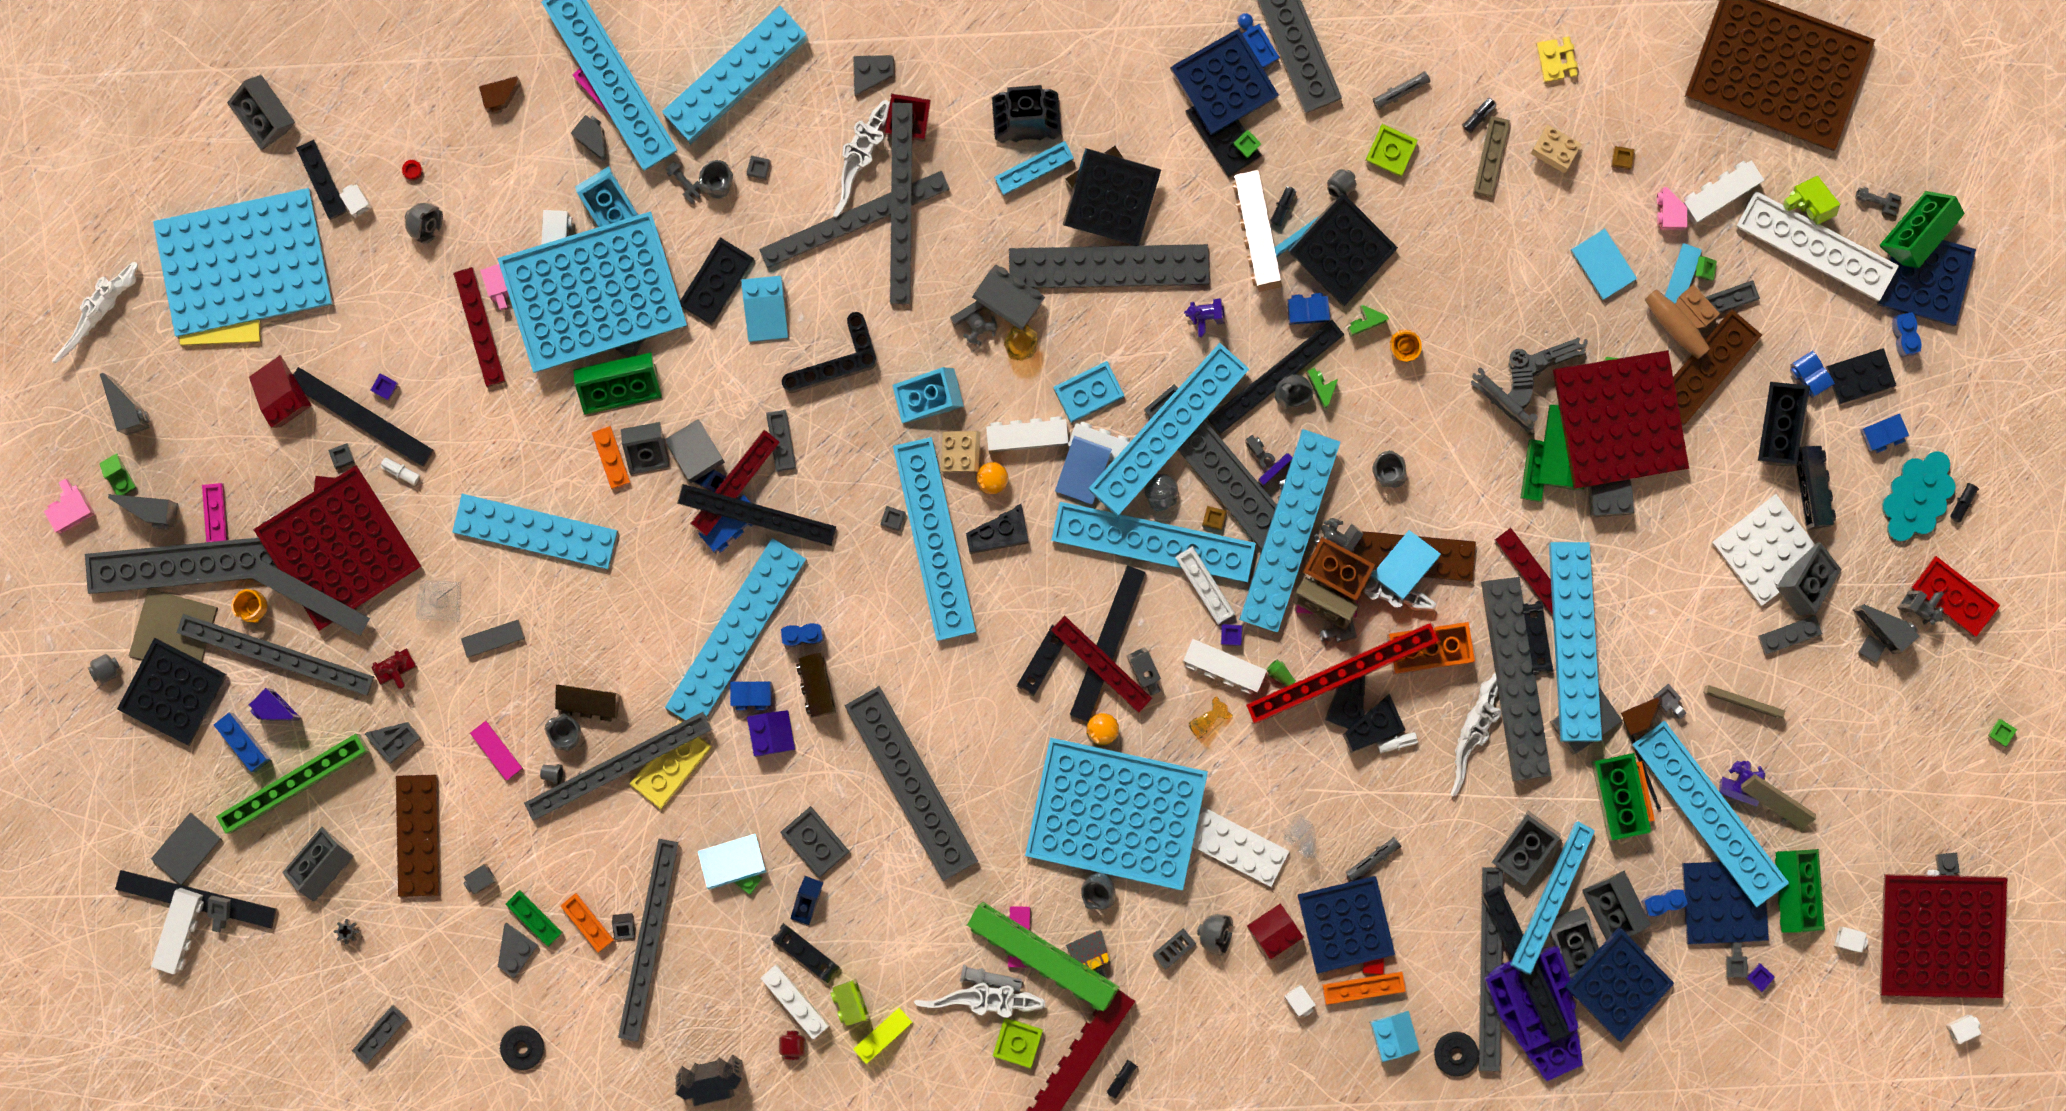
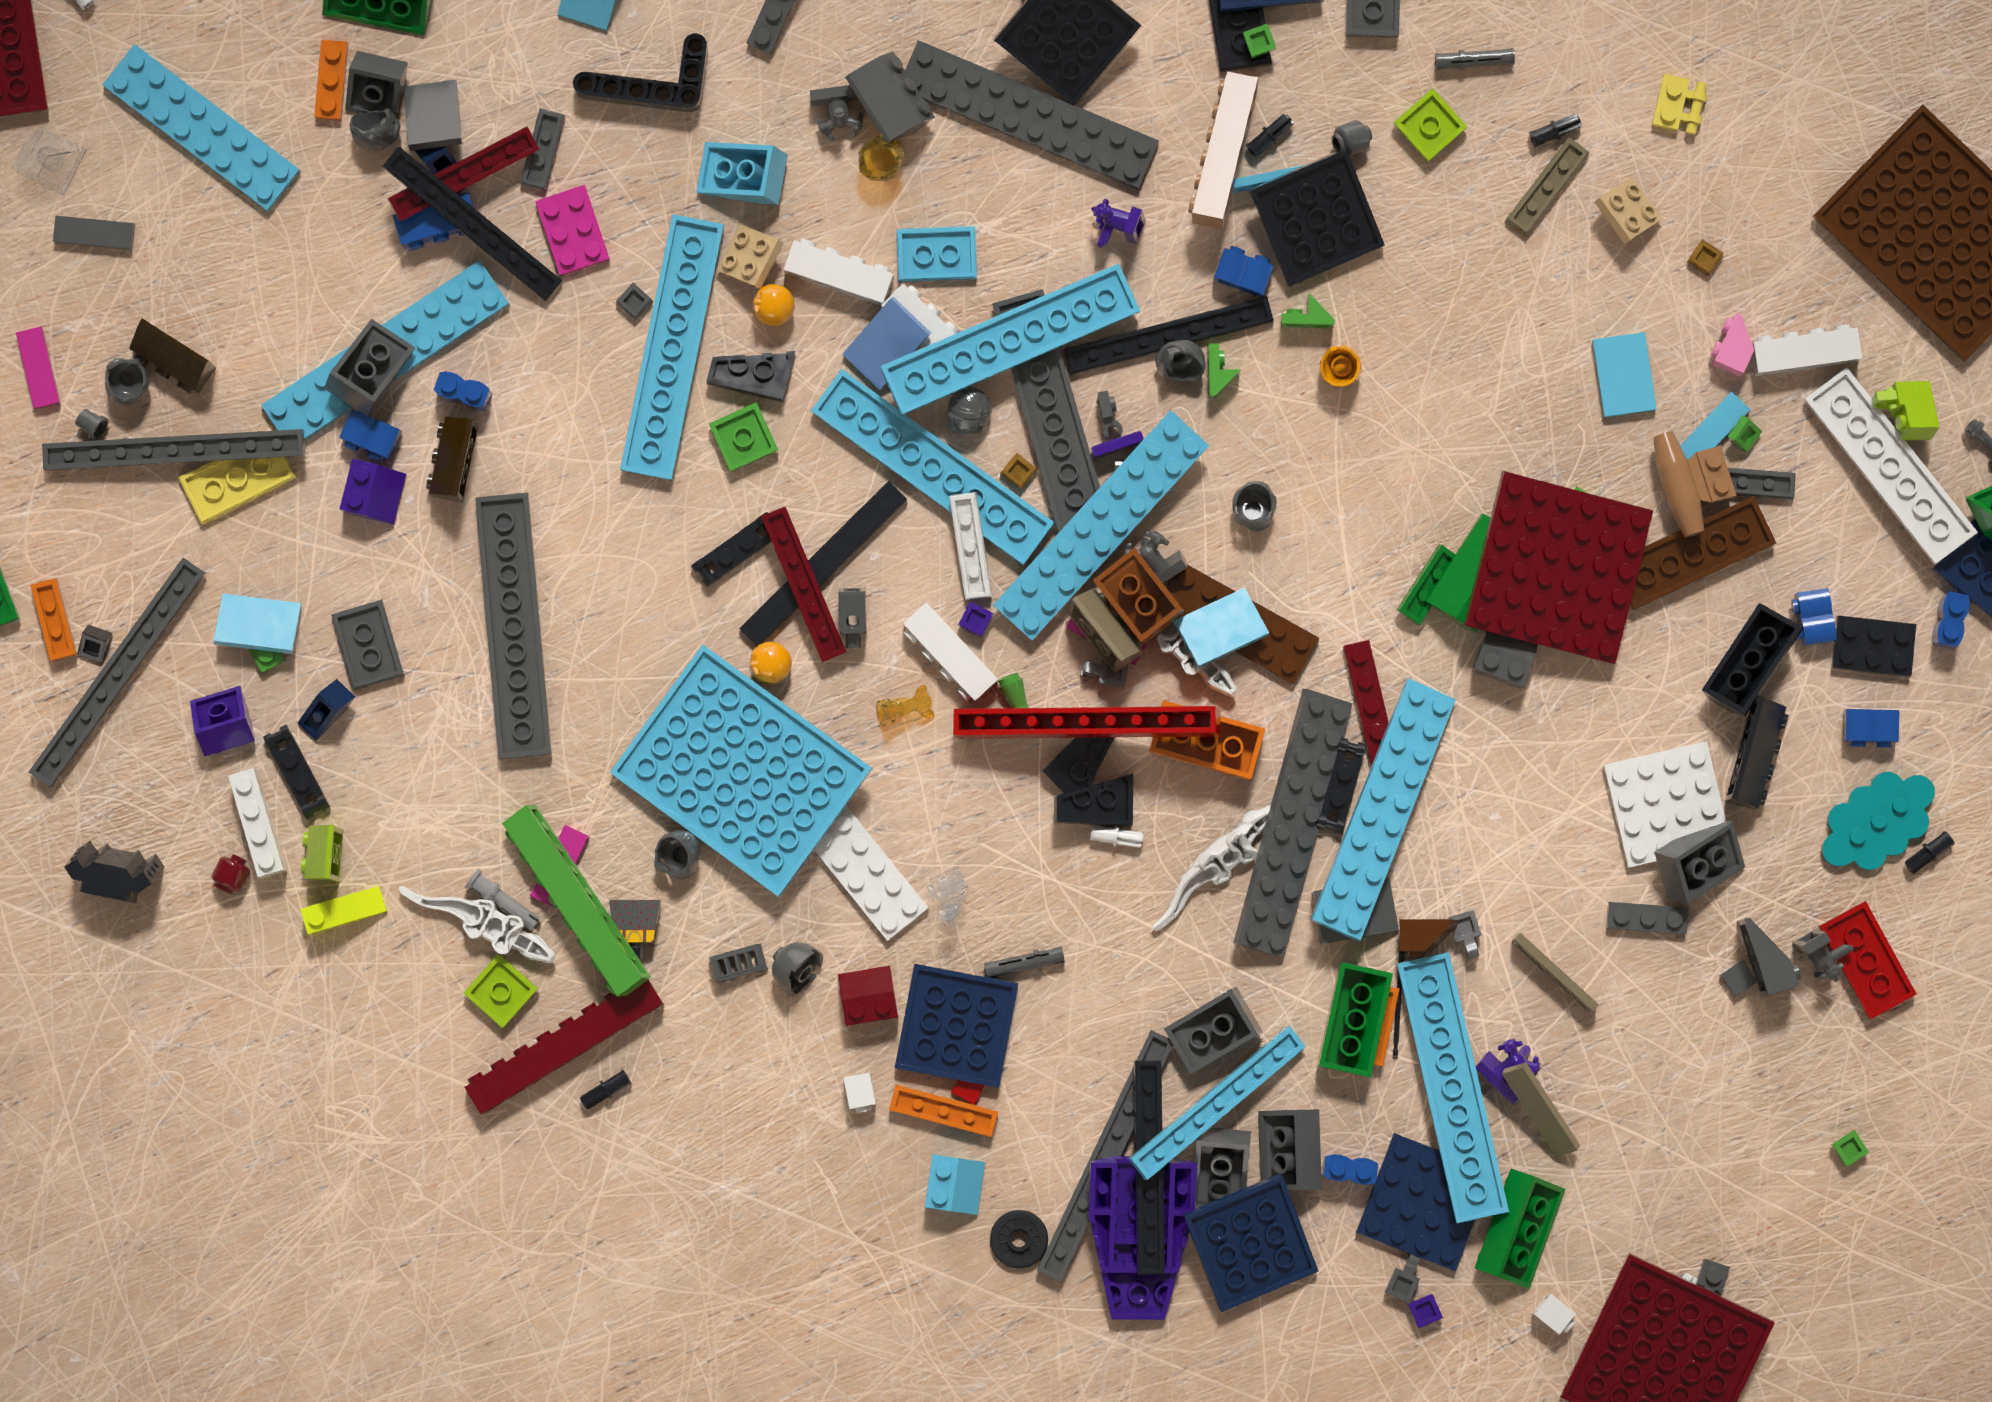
camera: 20 degrees right, 0 degrees up
(658, 478) = (374, 129): none -> dark grey hair
(729, 647) = (368, 367): none -> dark grey slope
(737, 940) = (222, 721): none -> dark purple slope
(827, 488) = (572, 230): none -> dark pink plate
(1012, 579) = (743, 437): none -> bright green plate
(1522, 379) = (1462, 466): dark grey piece -> none

